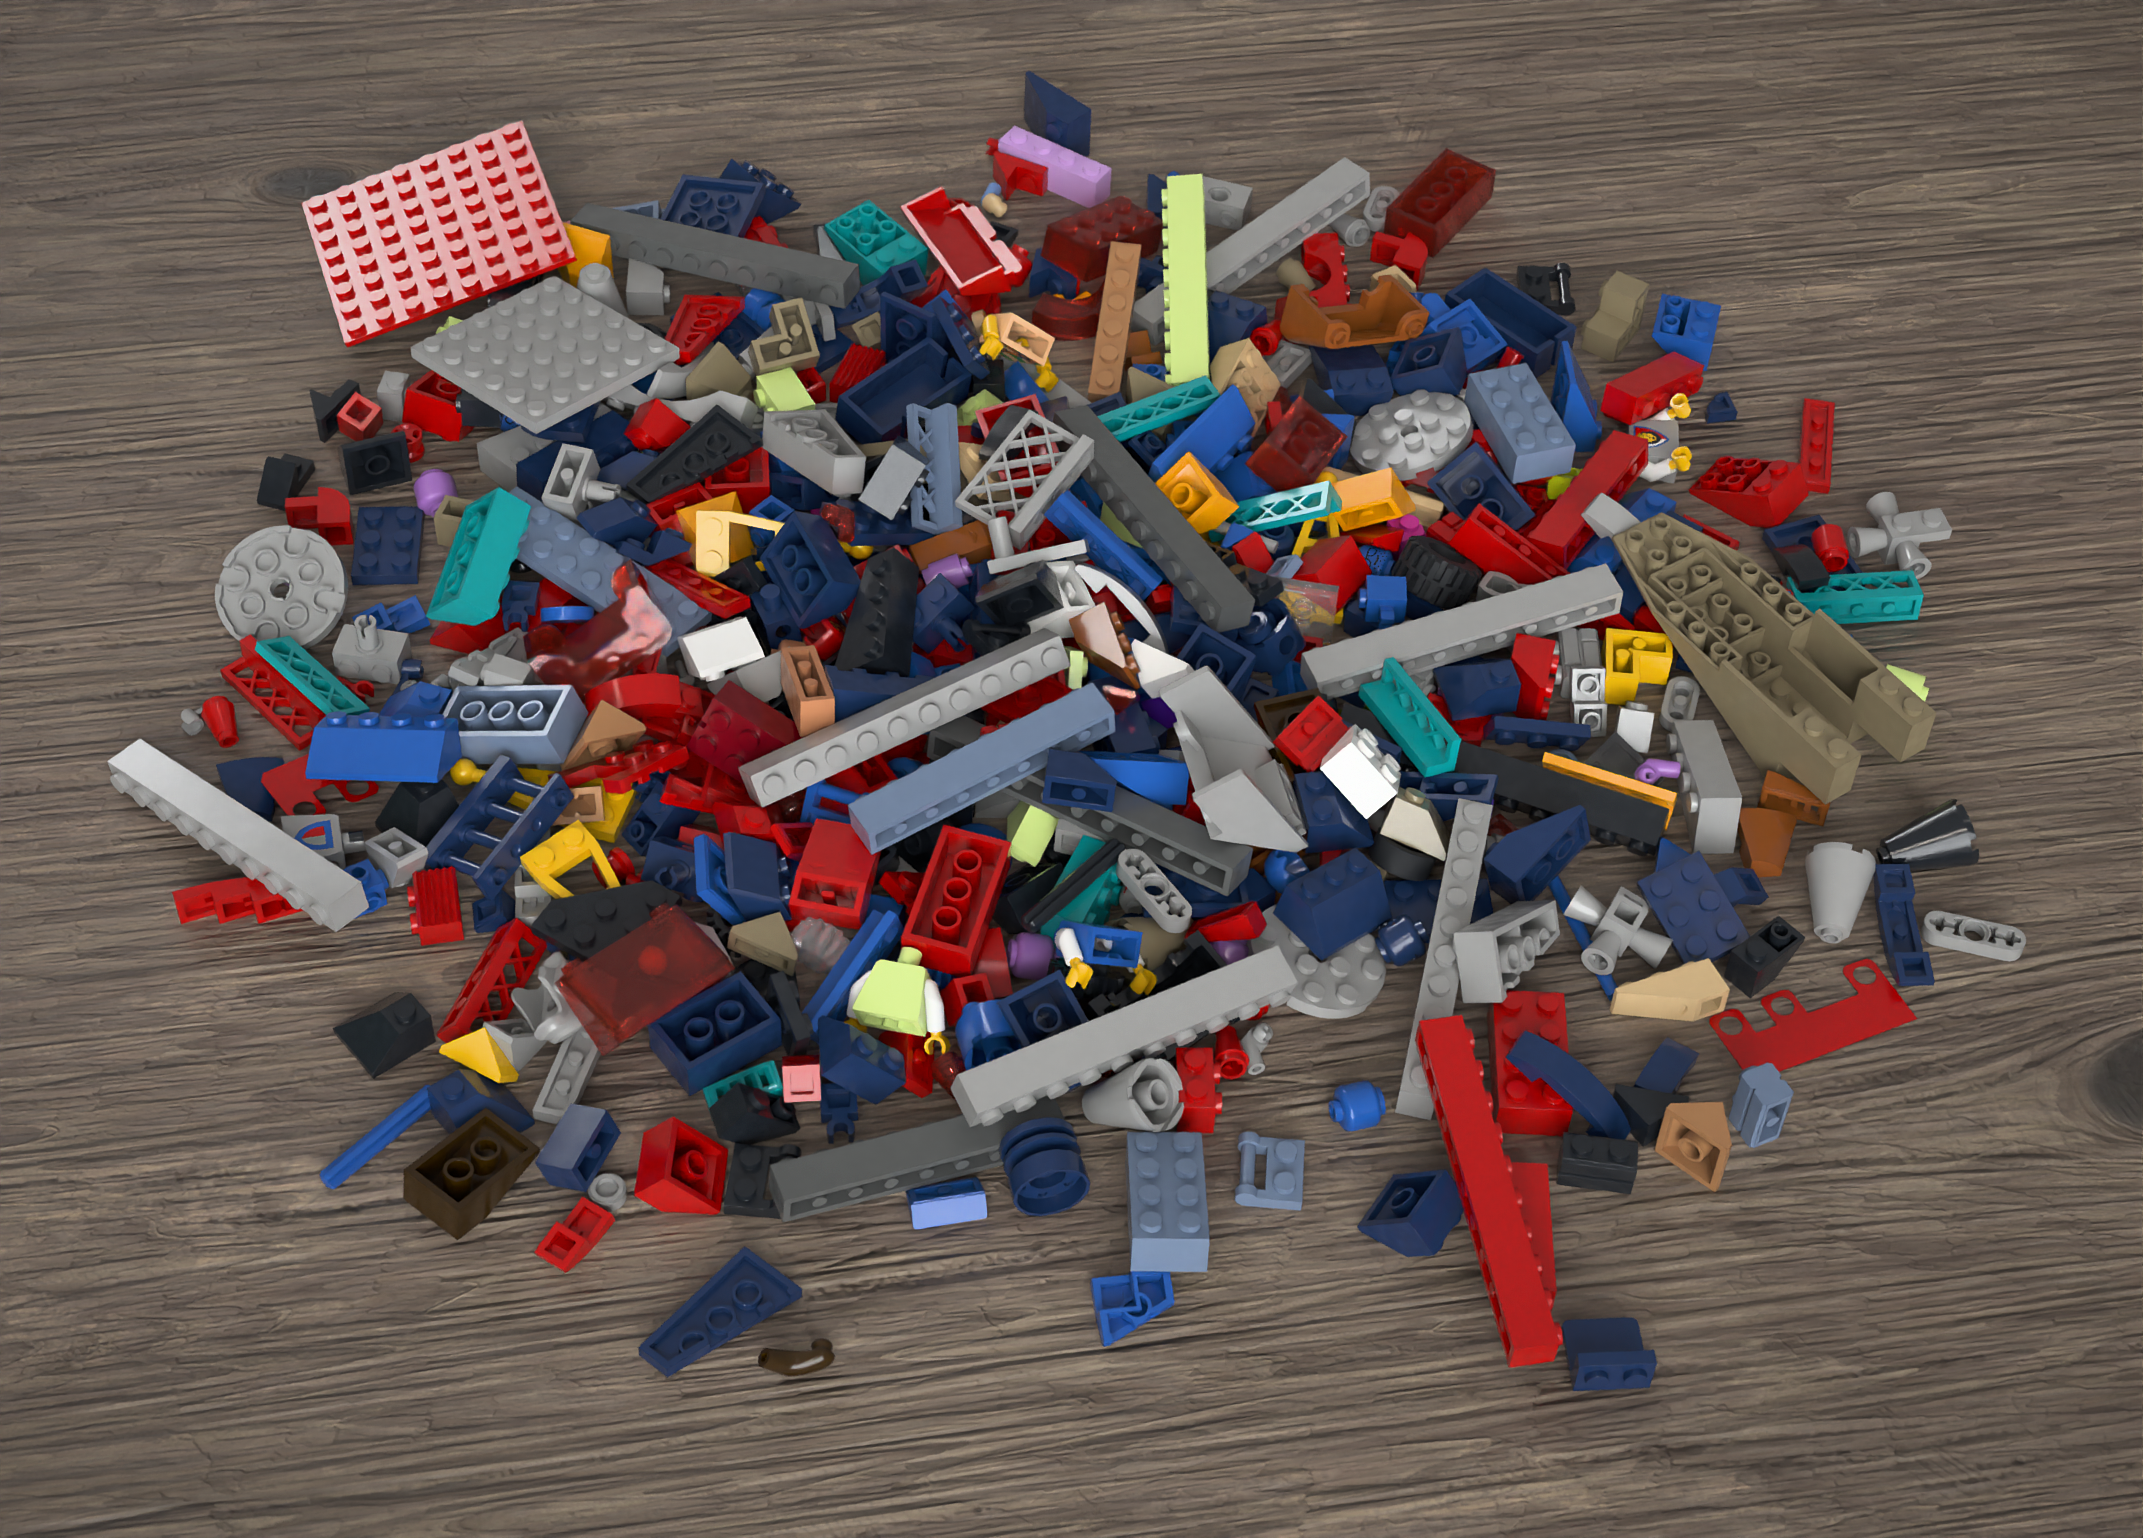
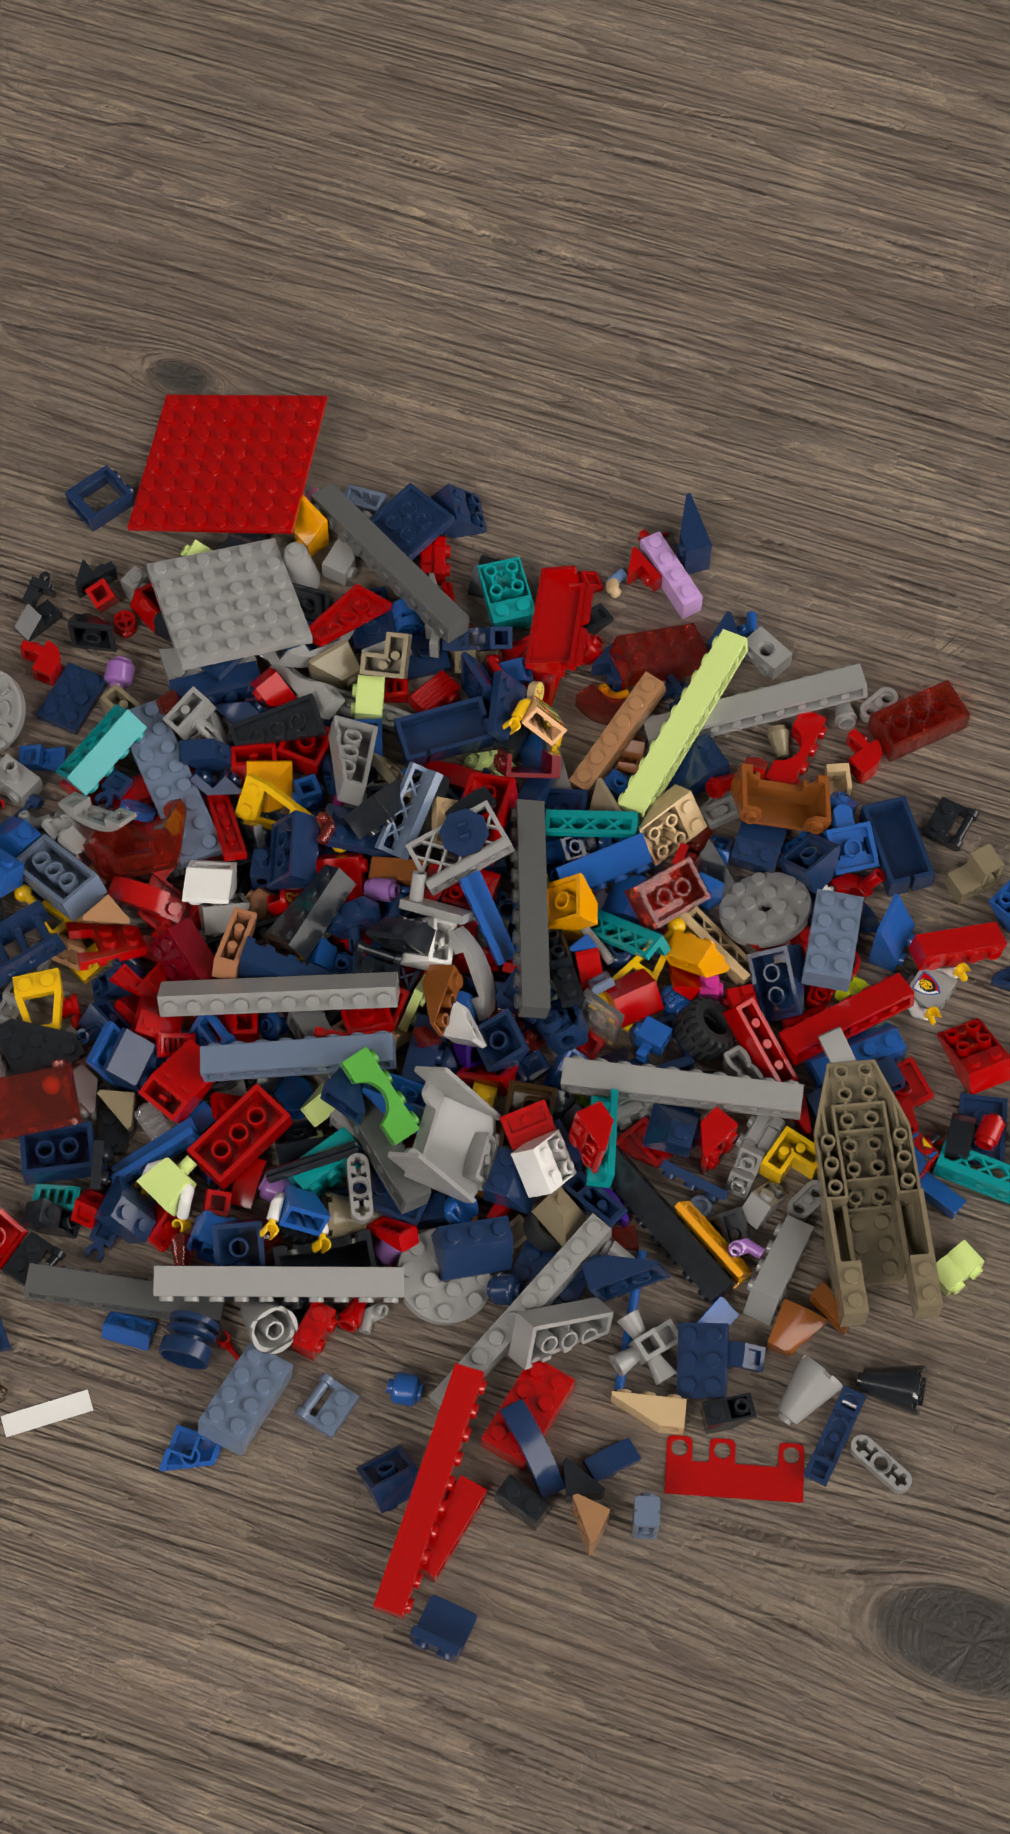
camera: 30 degrees right, 15 degrees up
(262, 343) = (93, 483): none -> dark blue window
(268, 442) = (37, 587): none -> black piece
(490, 637) = (94, 817): none -> light grey slope
(534, 481) = (168, 701): none -> clear red slope
(899, 1352) = (46, 1413): none -> white sticker
(1023, 455) = (464, 832): none -> dark blue piece
(1053, 378) = (549, 767): none -> dark red panel
(1095, 1163) = (227, 1345): none -> red hand
(1160, 776) = (397, 1121): none -> bright green arch
(1406, 707) = (591, 1134): none -> red slope

